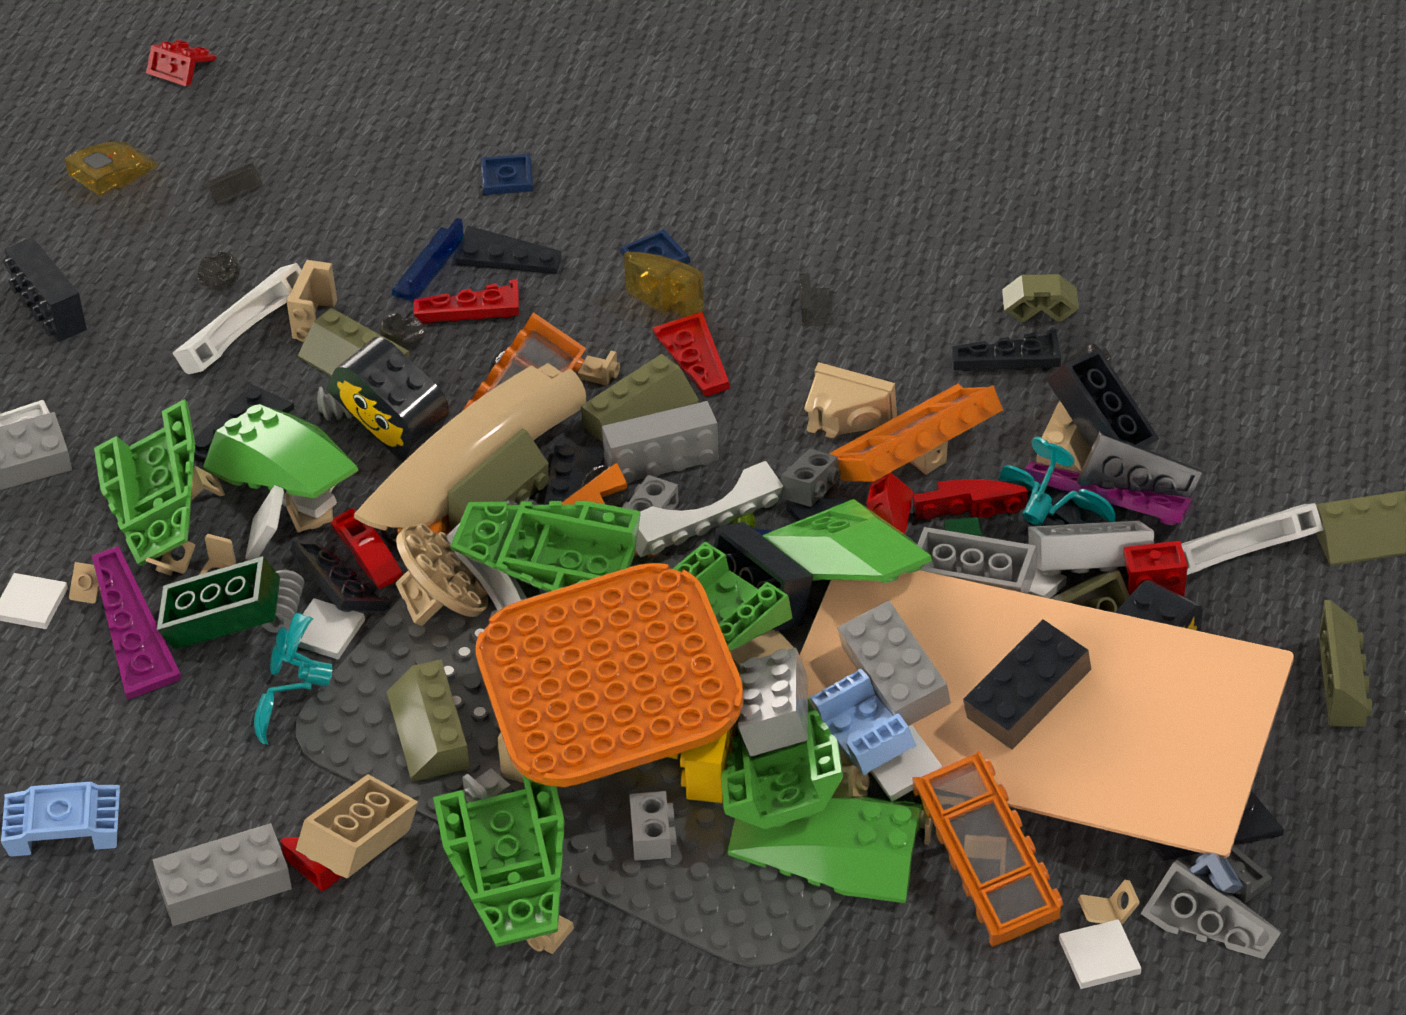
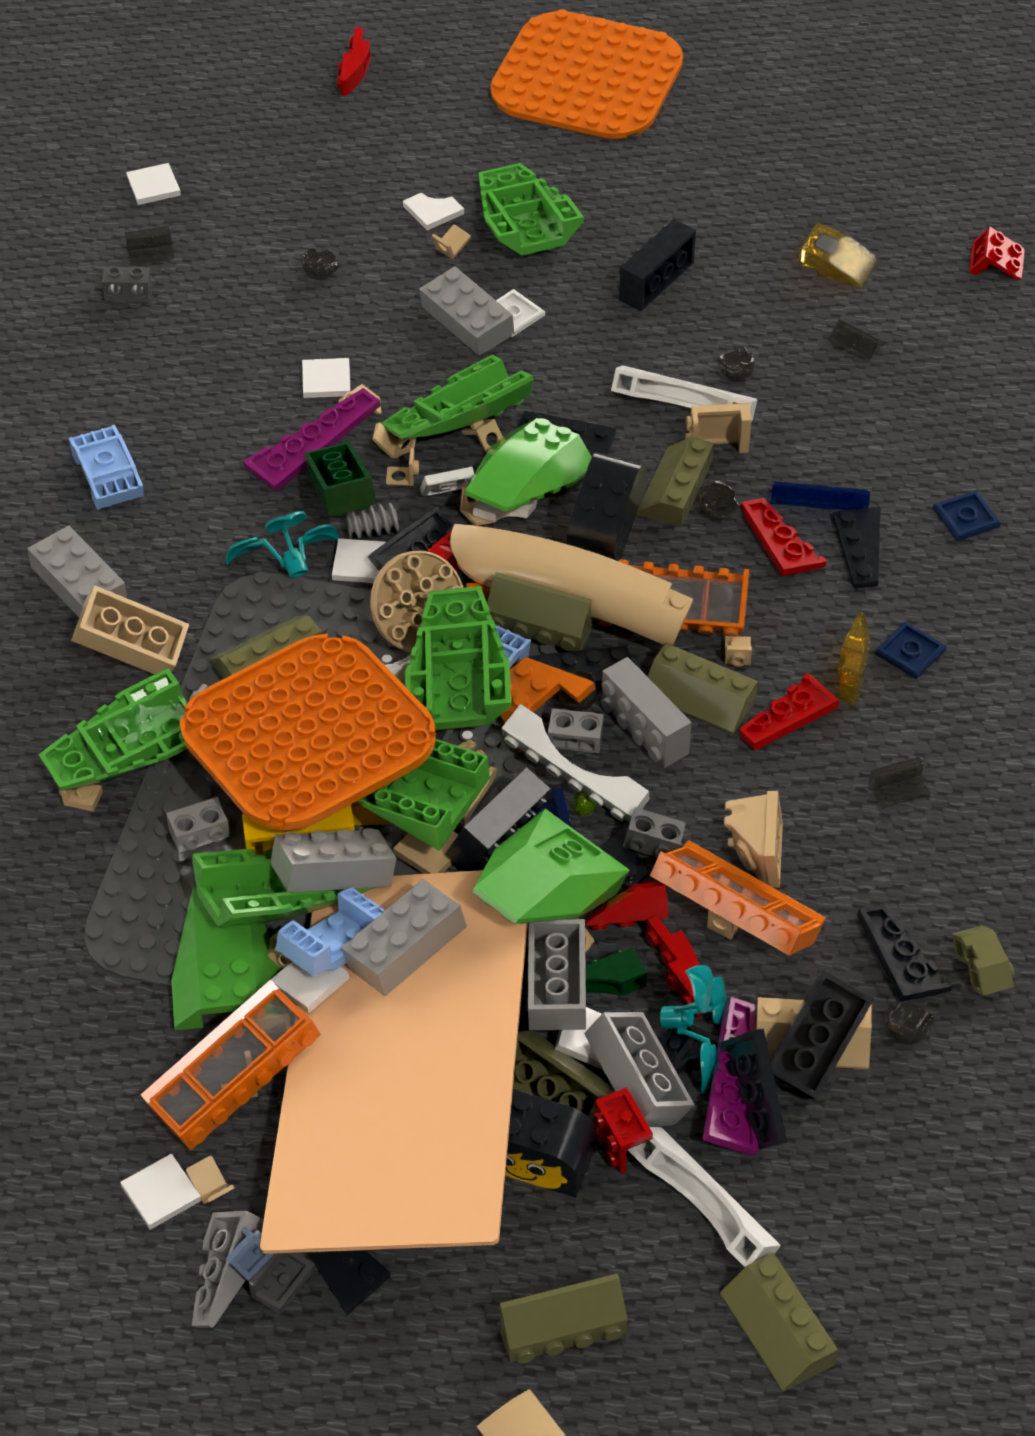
camera: 70 degrees right, 5 degrees up
(1027, 684) = (404, 1039): black brick -> none

